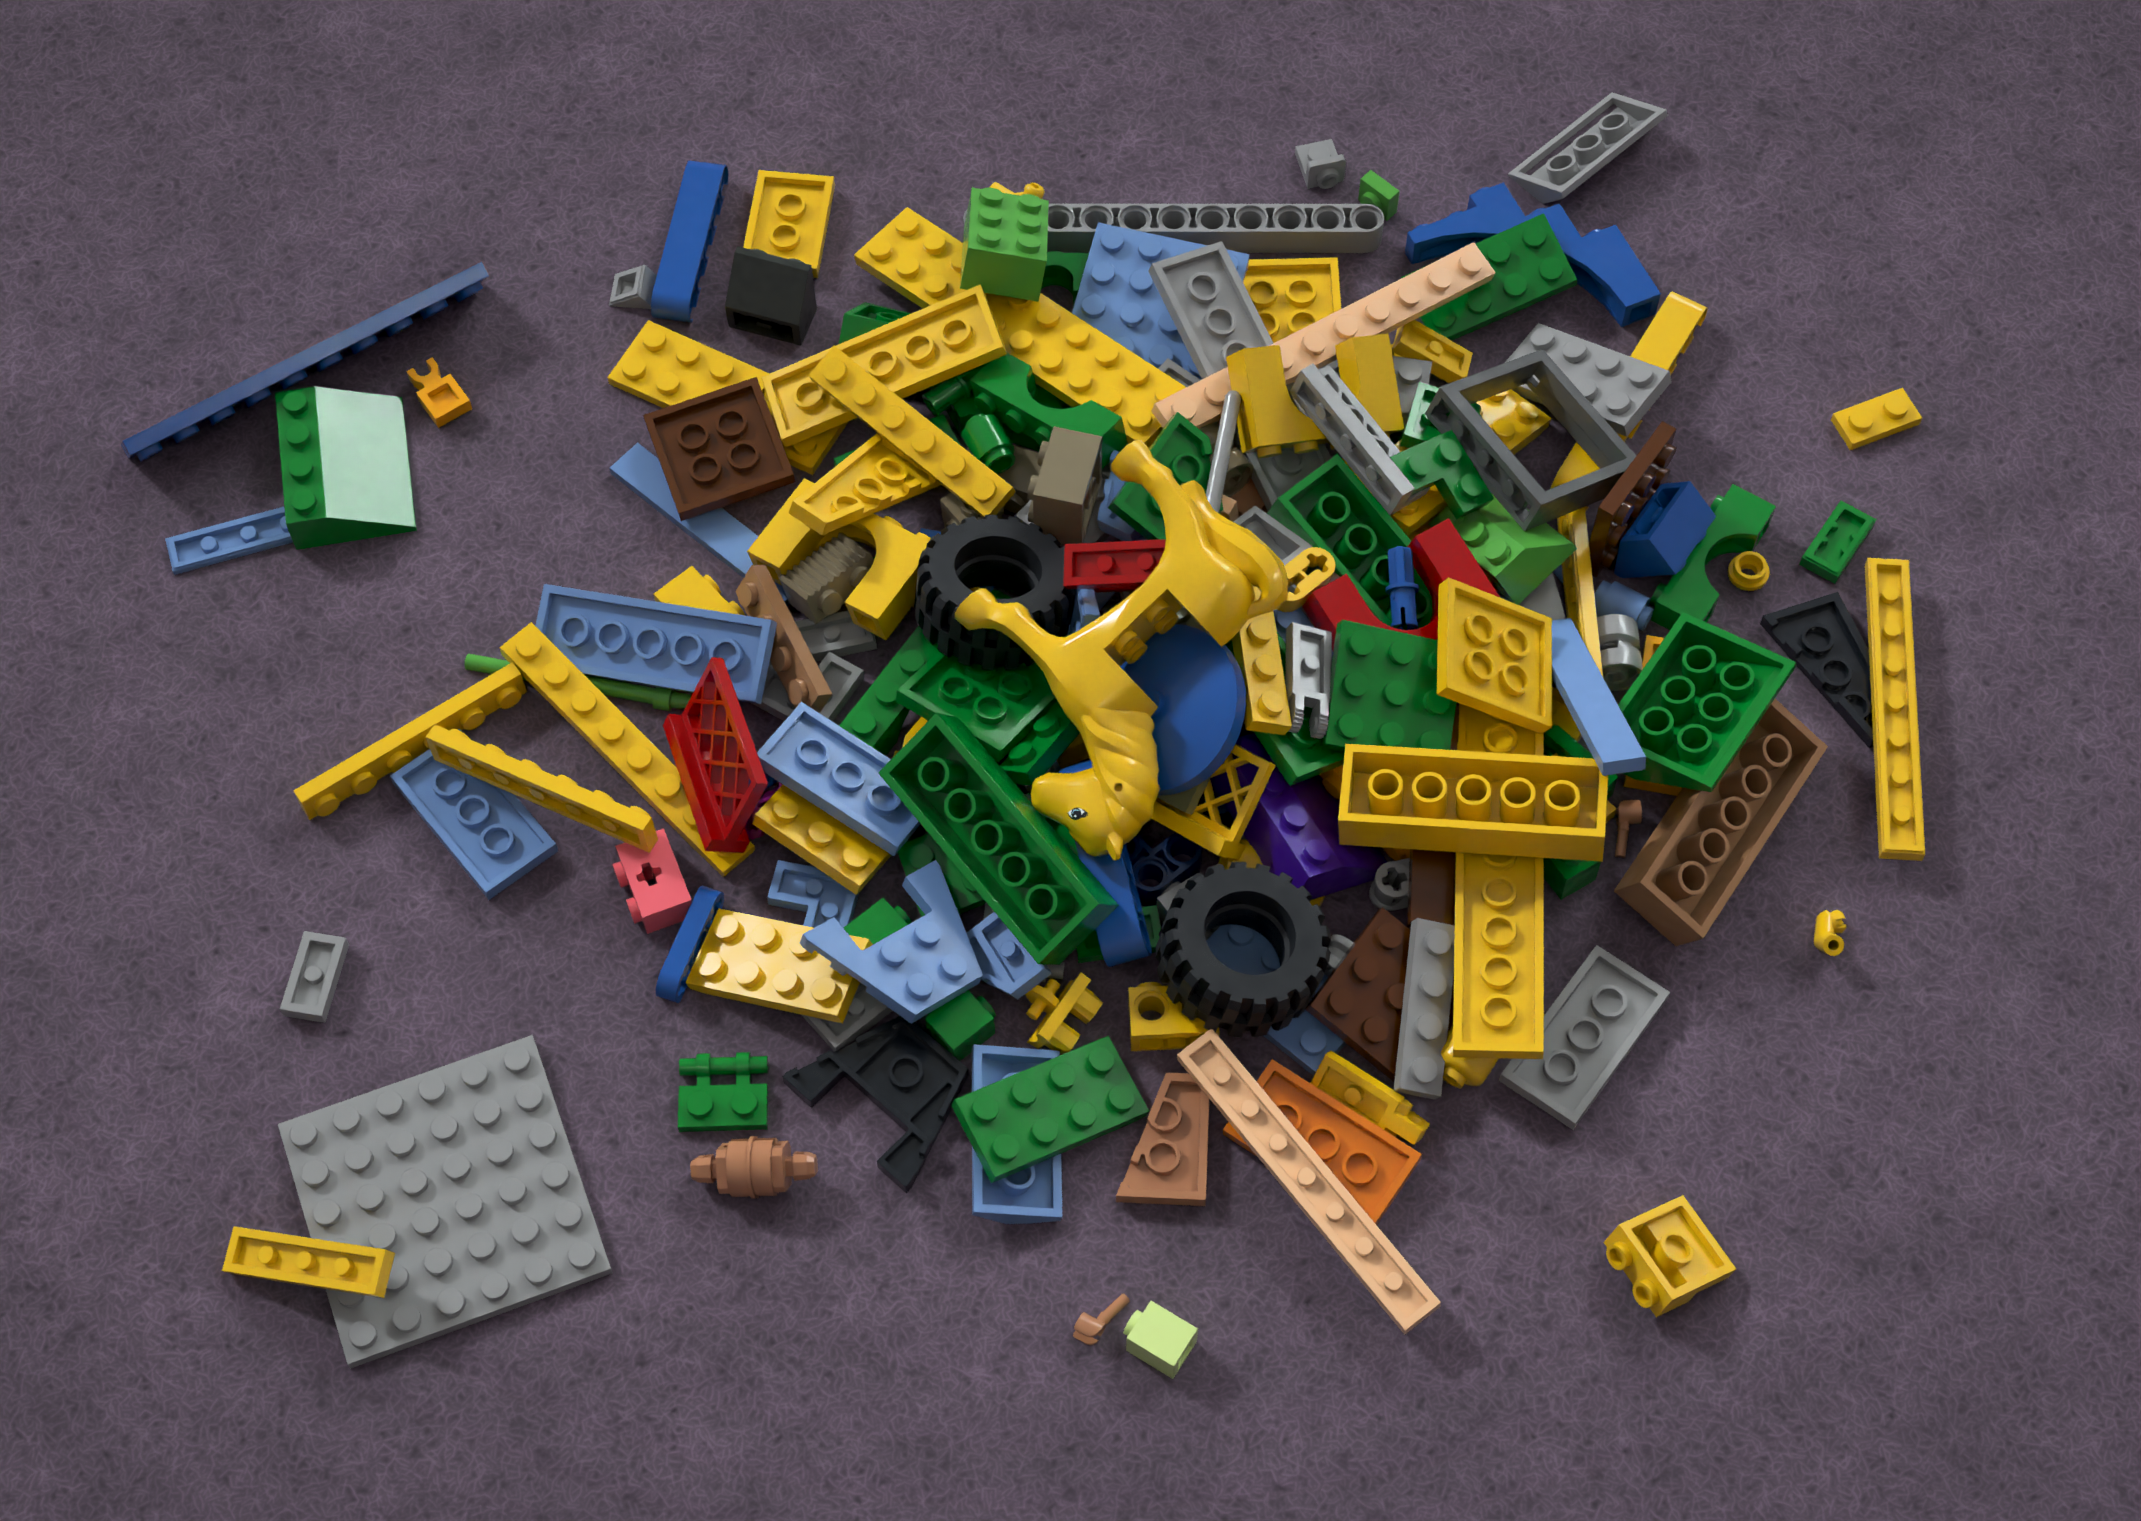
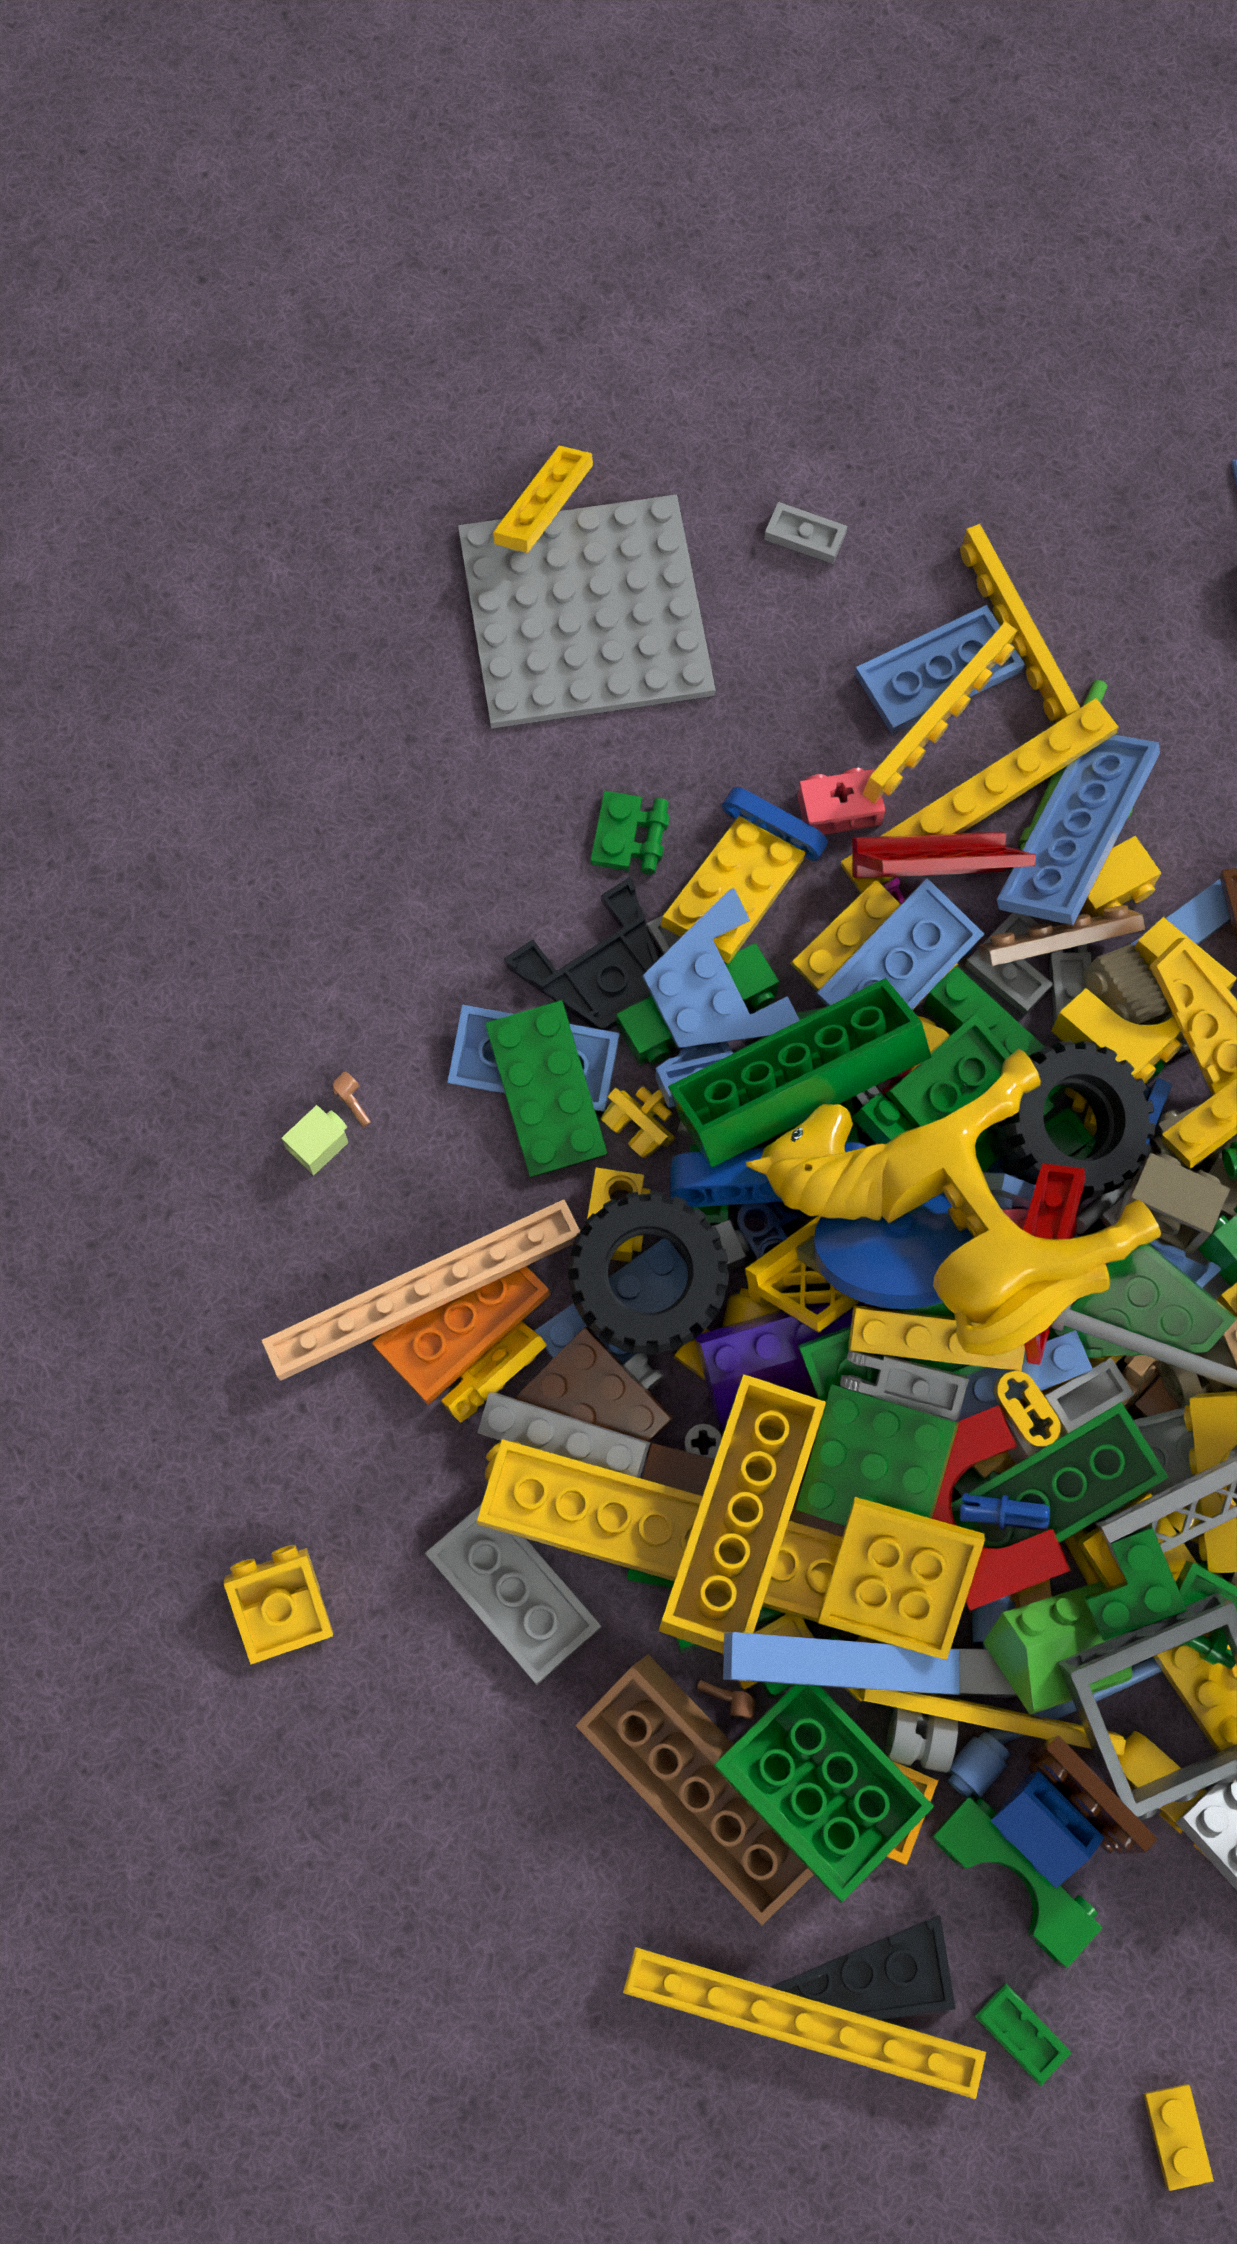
camera: 100 degrees right, 10 degrees up
(754, 1167) = (549, 840): nougat piece -> none
(811, 891) = (784, 941): medium blue plate -> none
(1173, 1148) = (485, 1188): nougat wing -> none
(1752, 561) = (1016, 1917): yellow plate -> none
(1825, 928) = (564, 1863): yellow arm -> none

